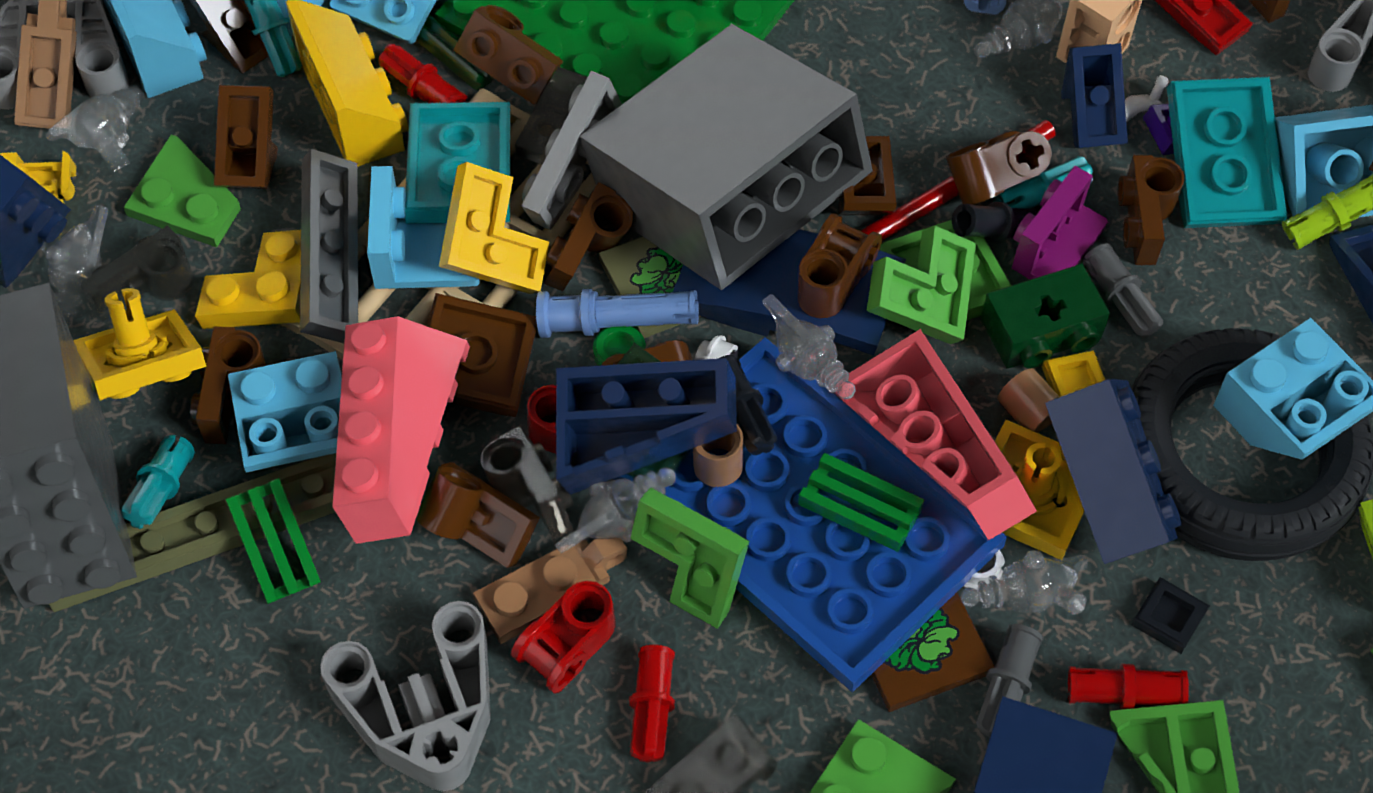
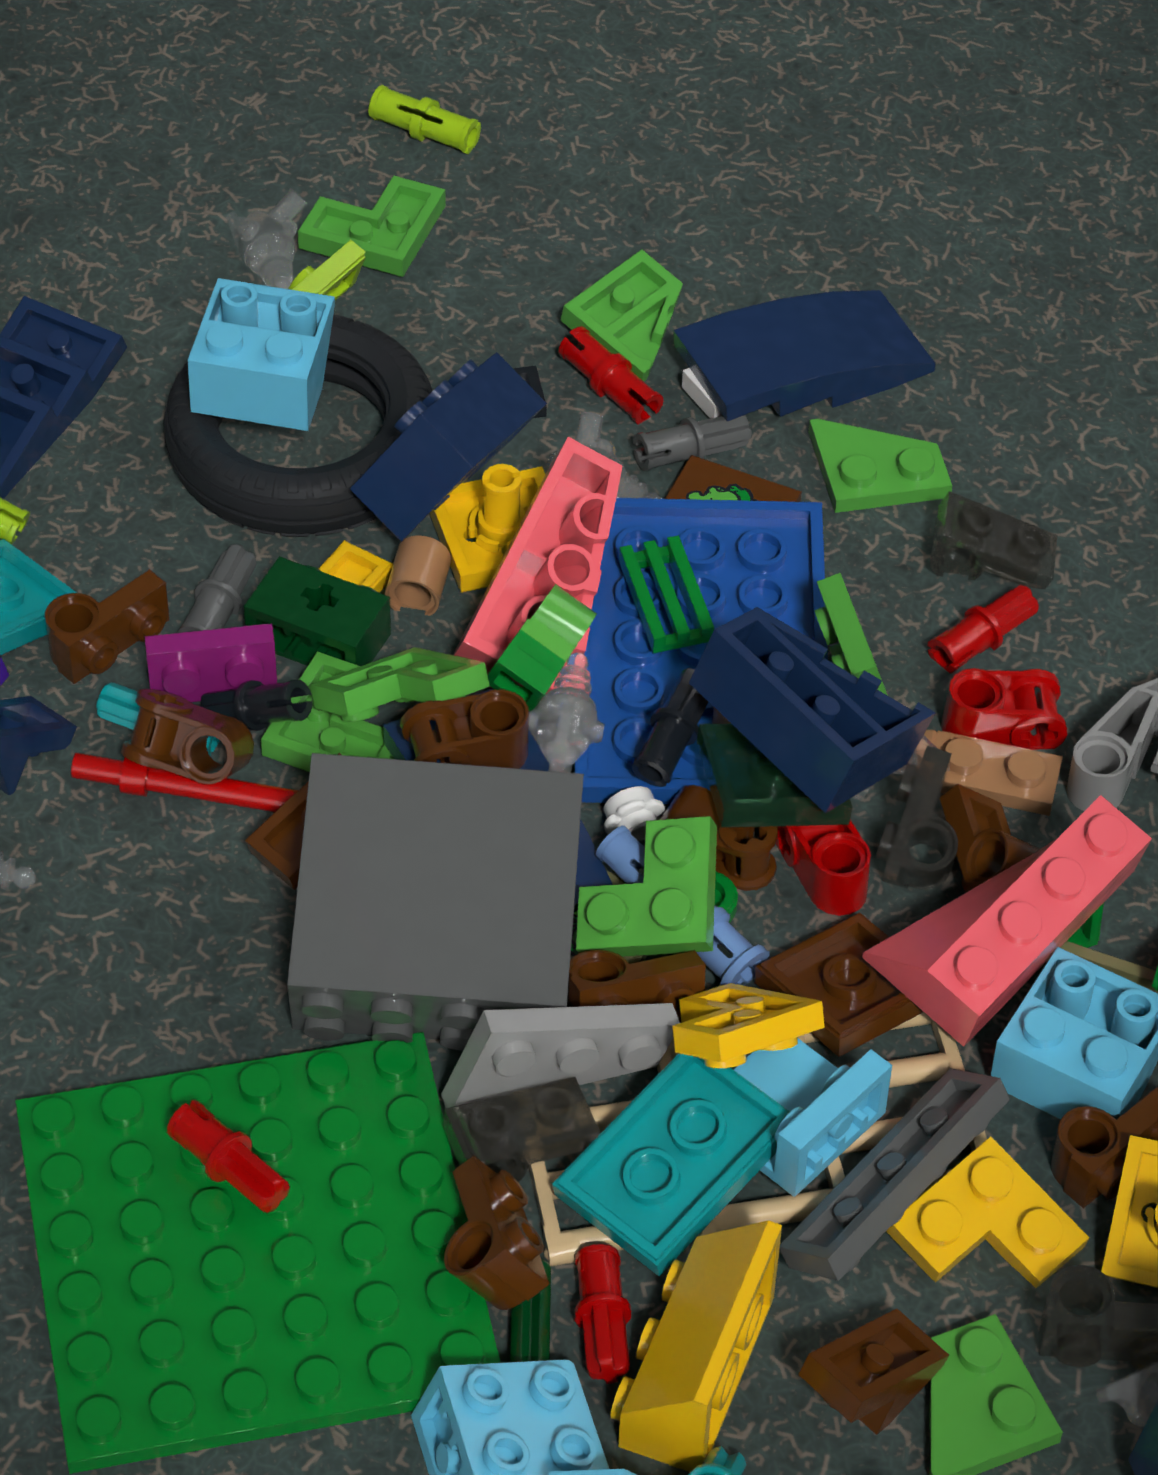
camera: 135 degrees left, 10 degrees down
(621, 282) = (671, 906): none -> bright green plate
(865, 355) = (542, 647): none -> leg

